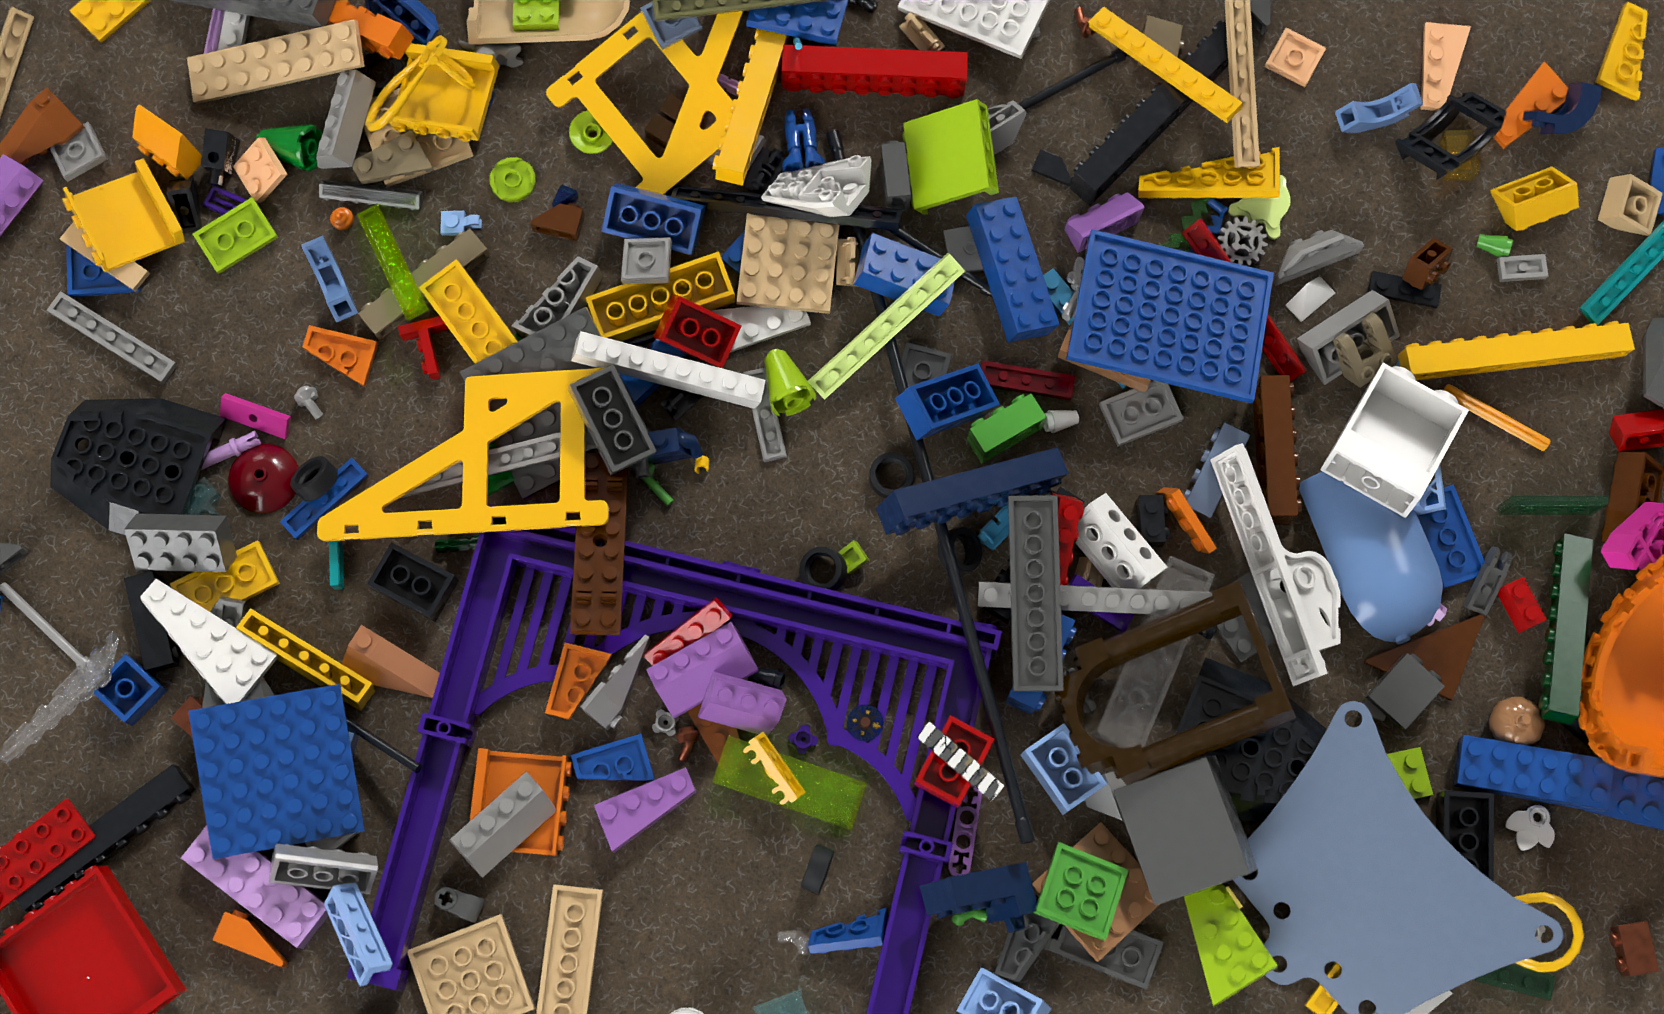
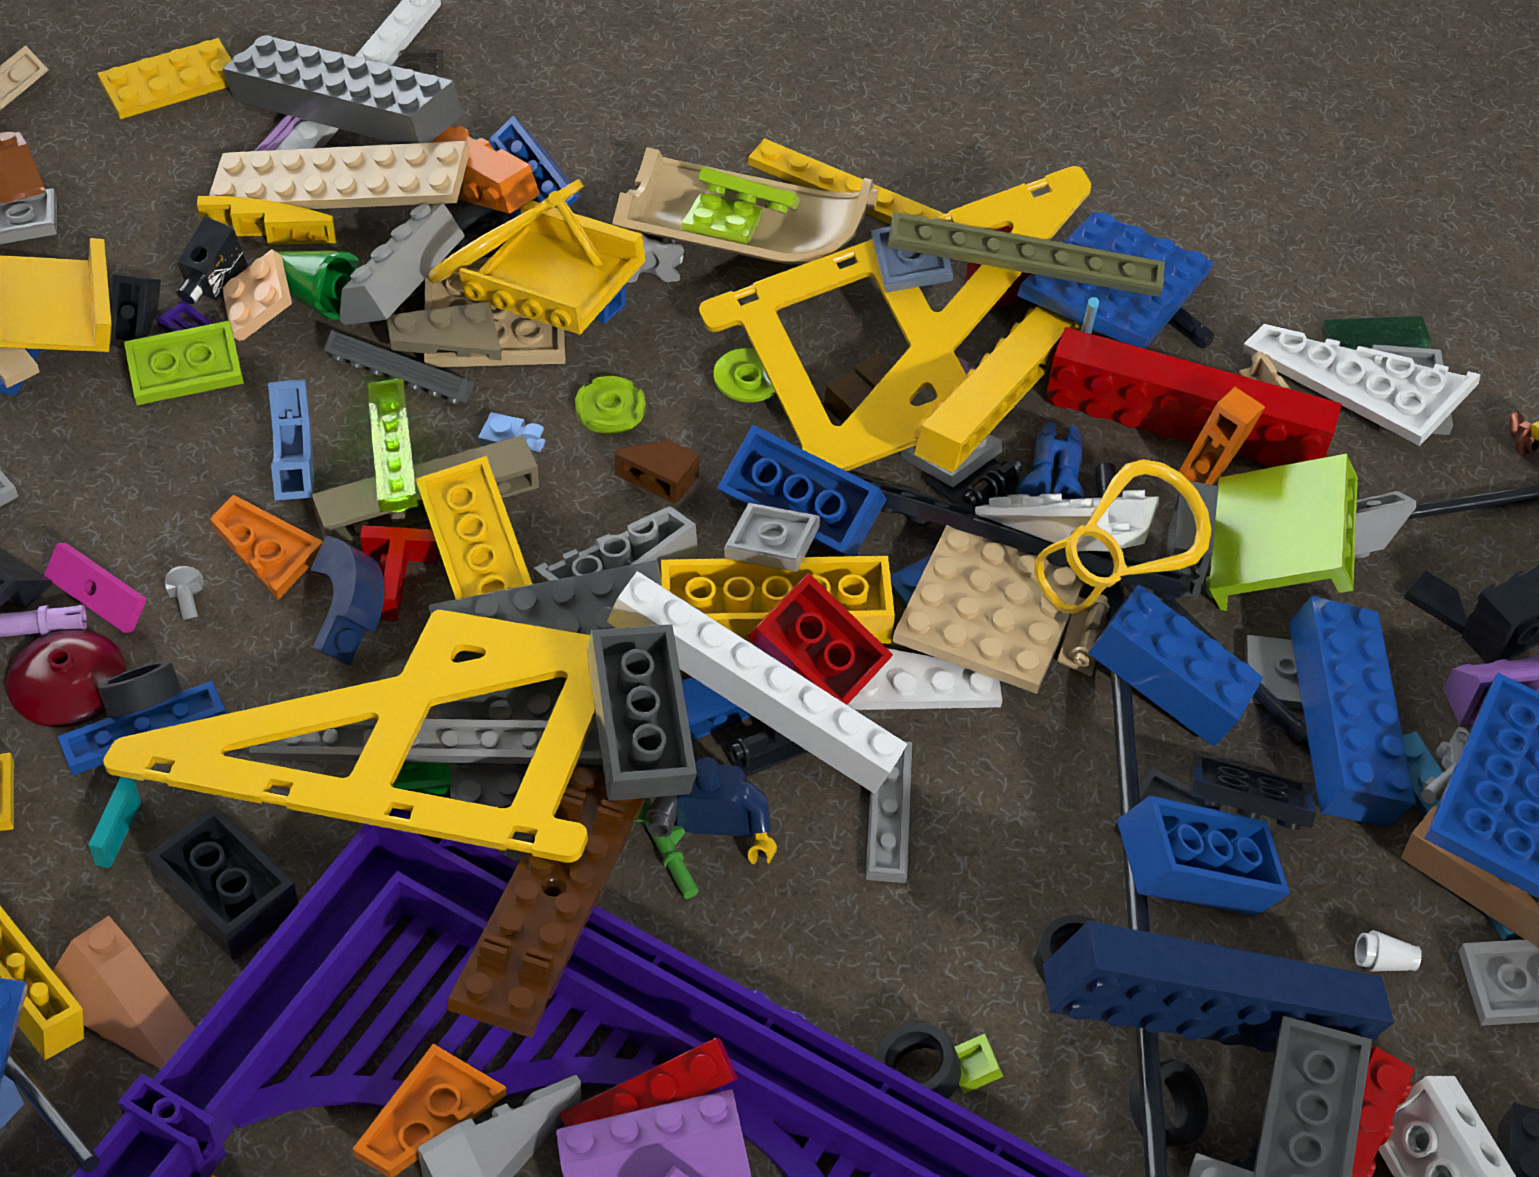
camera: 15 degrees right, 25 degrees down
(165, 144) = (142, 226): light orange slope -> none
(248, 102) = (277, 221): none -> yellow slope
(342, 218) = (344, 384): orange plate -> none
(413, 374) = (356, 598): none -> dark blue arch
(456, 544) = (313, 852): dark green axle -> none
(565, 195) = (681, 434): clear blue slope -> none
(786, 384) = (939, 774): lime cone -> none
(844, 176) = (1171, 563): none -> yellow animal
(886, 326) = (1126, 719): yellowish green plate -> none
(898, 102) = (1221, 437): none -> orange slope
(966, 345) = (1252, 792): none -> black plate
(994, 533) = (1233, 1097): dark azure hinge -> none
(1005, 427) = (1302, 925): bright green brick -> none
(1028, 380) = (1347, 881): dark red plate -> none

